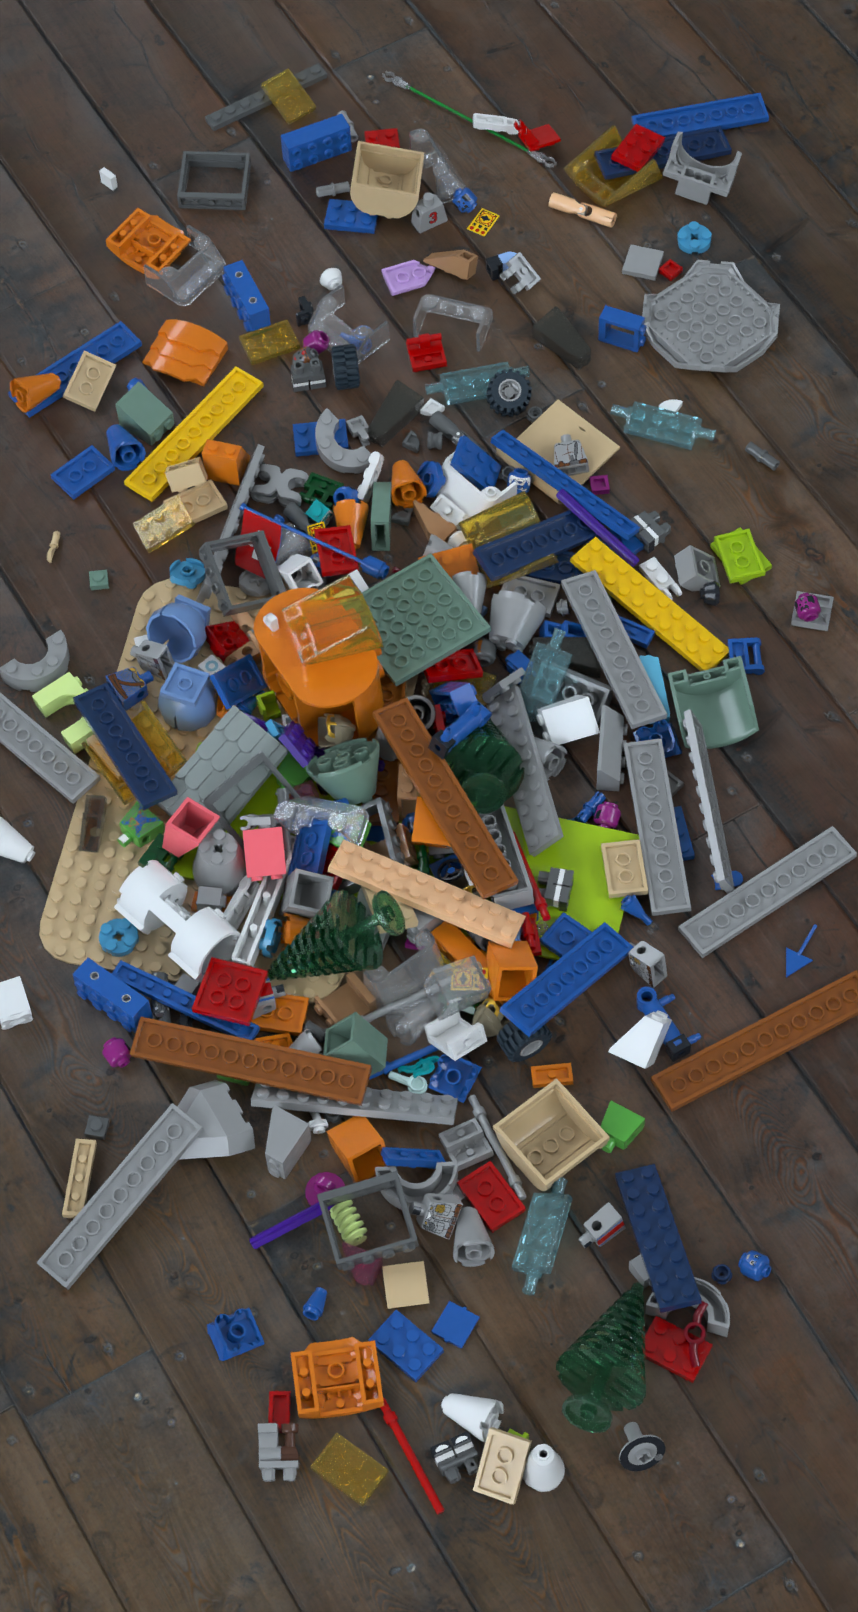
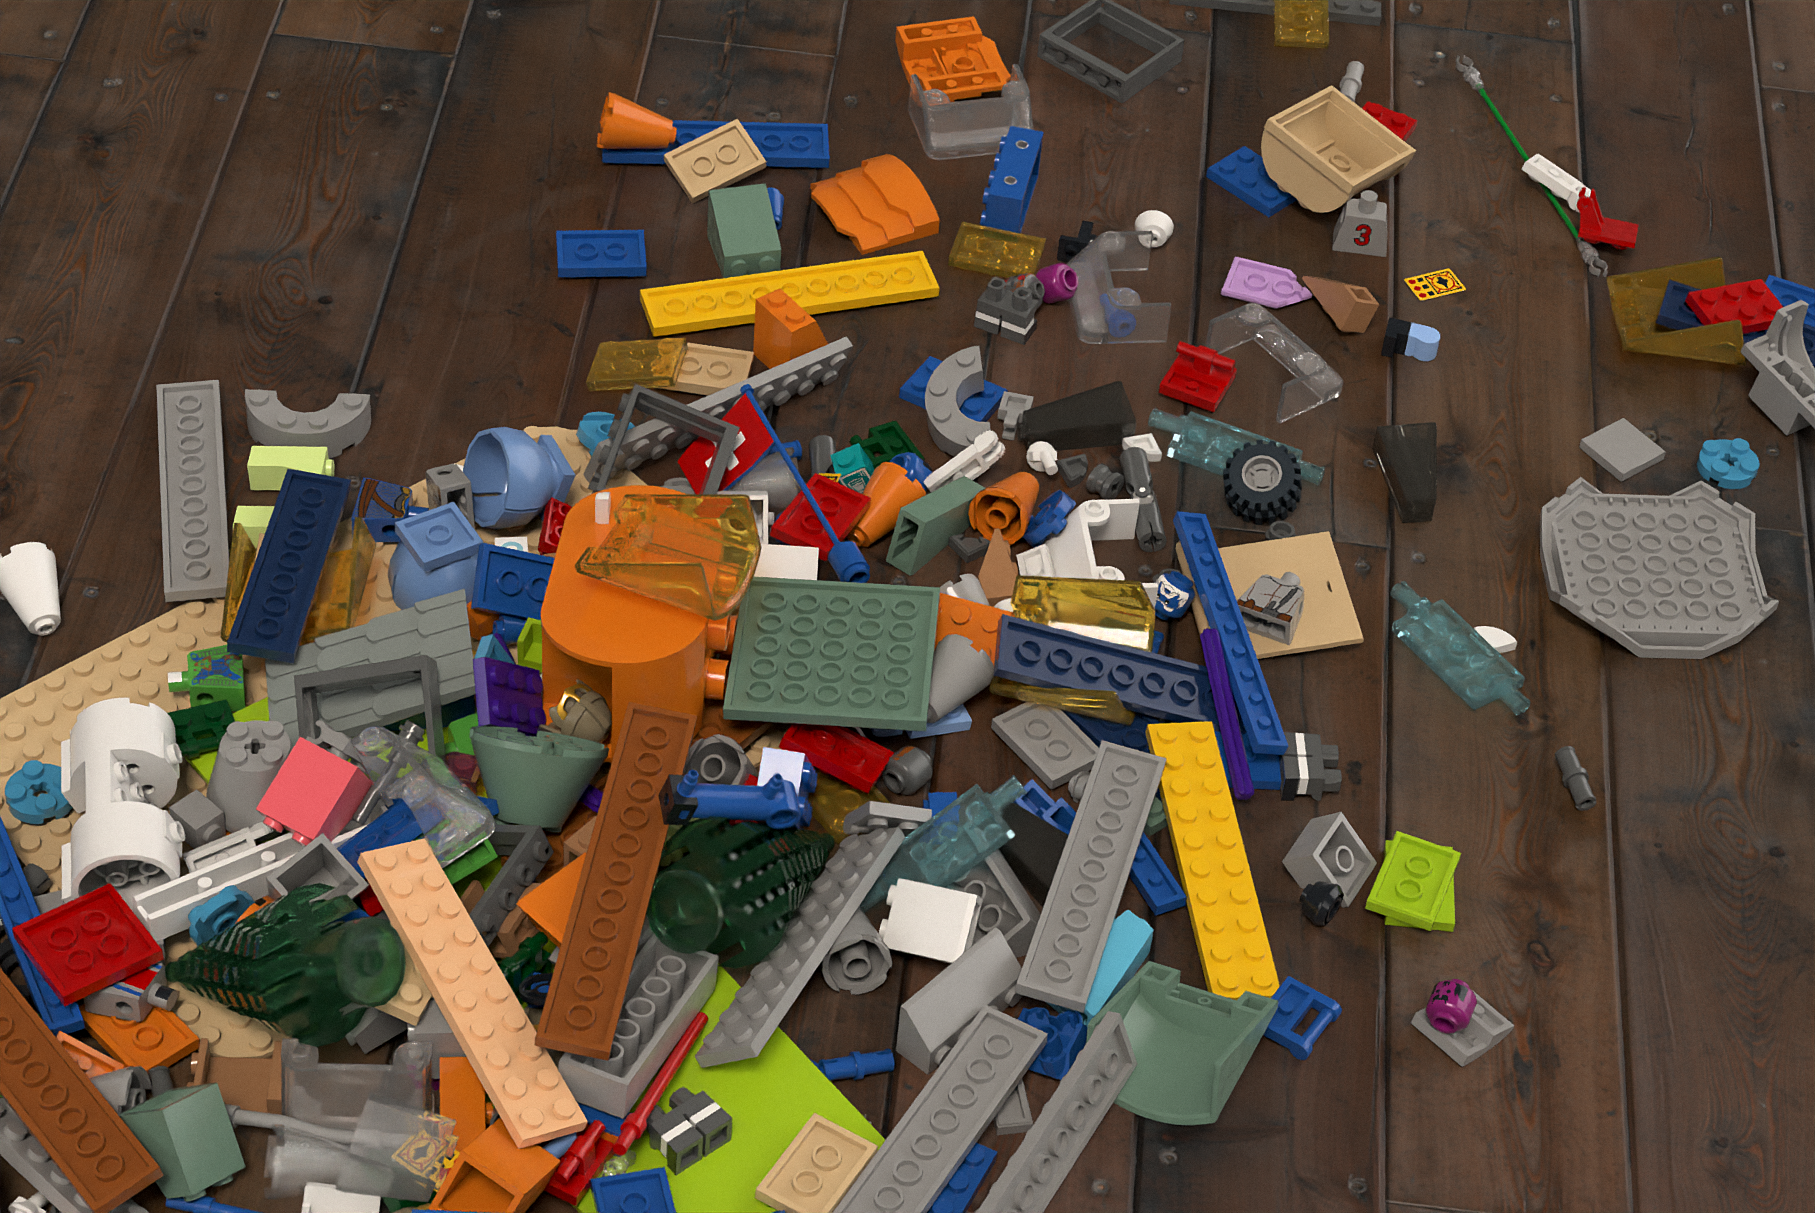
camera: 30 degrees right, 15 degrees down
(54, 545) = (464, 314): tan piece -> none
(93, 823) = (161, 637): clear smoke slope -> none
(98, 580) = (490, 380): sand green plate -> none
(124, 448) = (676, 255): blue cone -> none
(186, 475) = (721, 323): tan brick -> none
(188, 827) = (246, 691): coral slope -> none
(279, 485) = (836, 410): light grey piece -> none
(316, 142) = (1280, 70): blue brick -> none
(333, 189) = (1248, 134): light grey axle -> none
(345, 366) = (1063, 326): black wheel -> none
(395, 445) = (1042, 457): none -> white plate
(446, 175) = (1426, 184): clear windscreen -> none
(464, 200) = (1428, 240): blue head -> none
(475, 464) = (1126, 533): blue plate -> none
(514, 620) = (984, 748): light grey cone -> none
(523, 271) = (1429, 361): light grey plate -> none
(571, 206) = (1579, 330): light nougat piece -> none
(599, 484) = (1291, 672): magenta tile -> none
(607, 815) = (871, 1090): magenta head -> none
(625, 320) = (1499, 474): blue window -> none
(659, 577) = (1264, 838): white hinge -> none
(670, 270) = (1656, 480): red tile -> none

